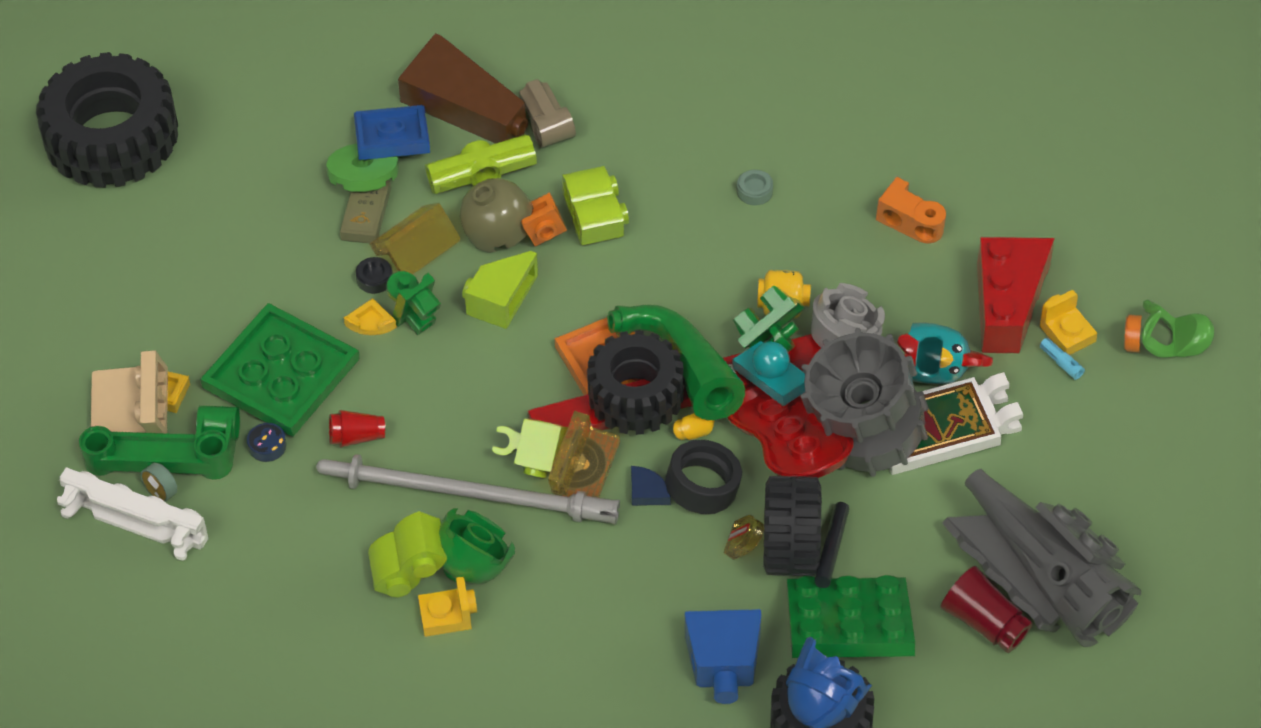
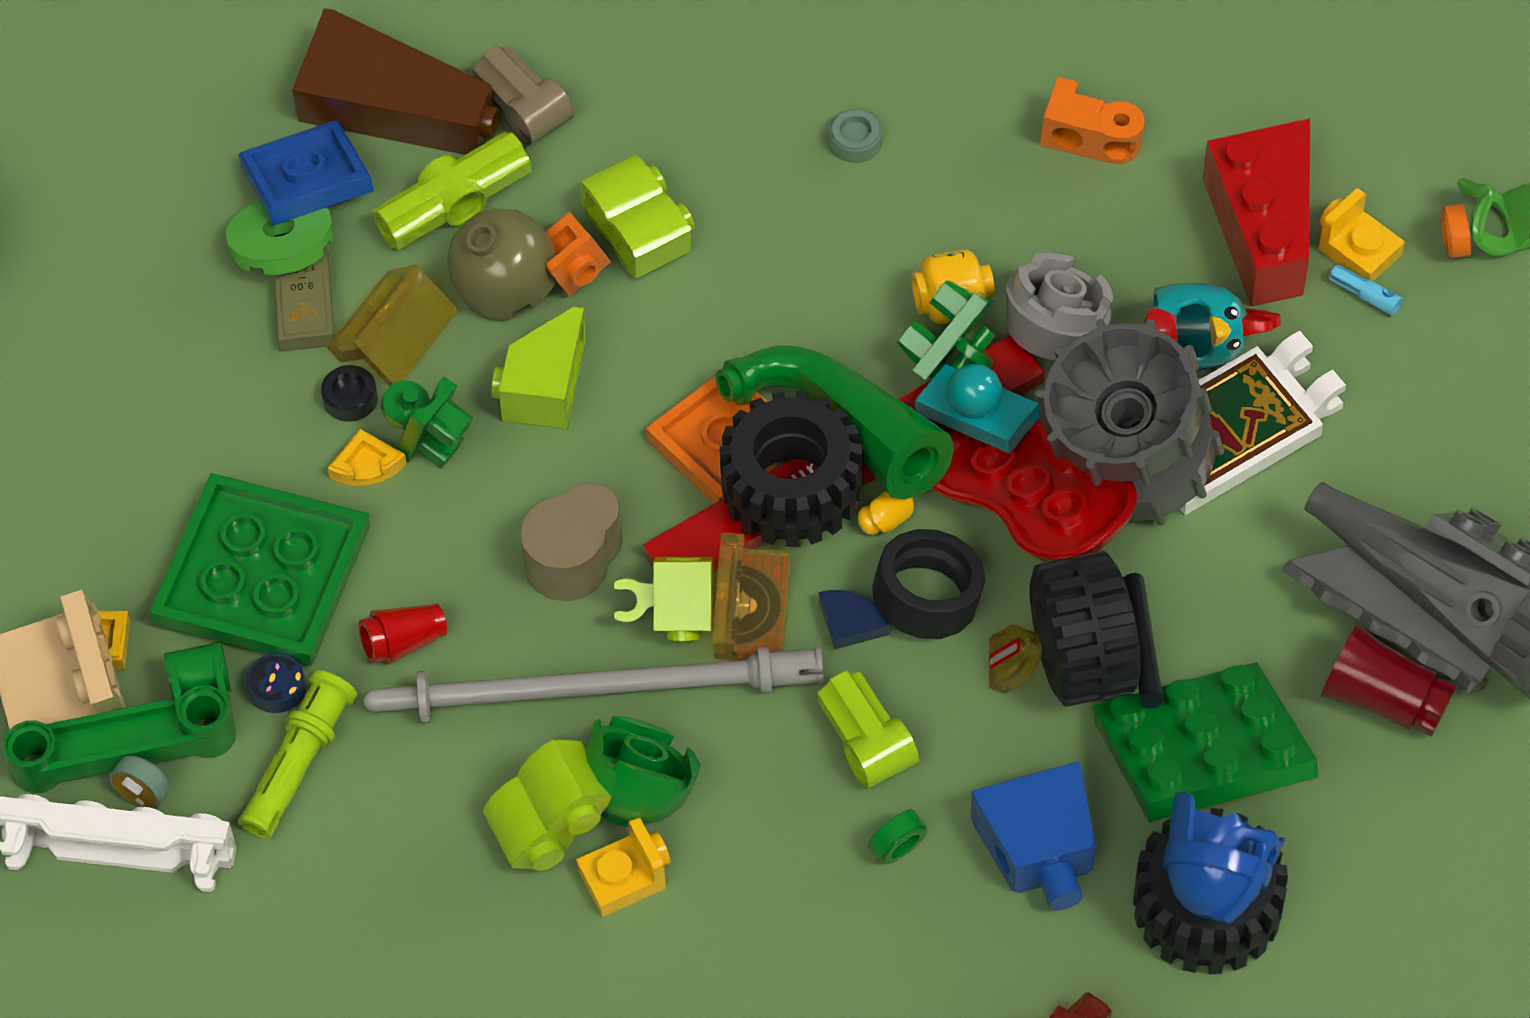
camera: 15 degrees left, 5 degrees up
(275, 476) = (307, 733): none -> lime pin
(482, 397) = (571, 541): none -> dark tan piece
(629, 630) = (897, 836): none -> green tile
(633, 566) = (872, 740): none -> lime piece

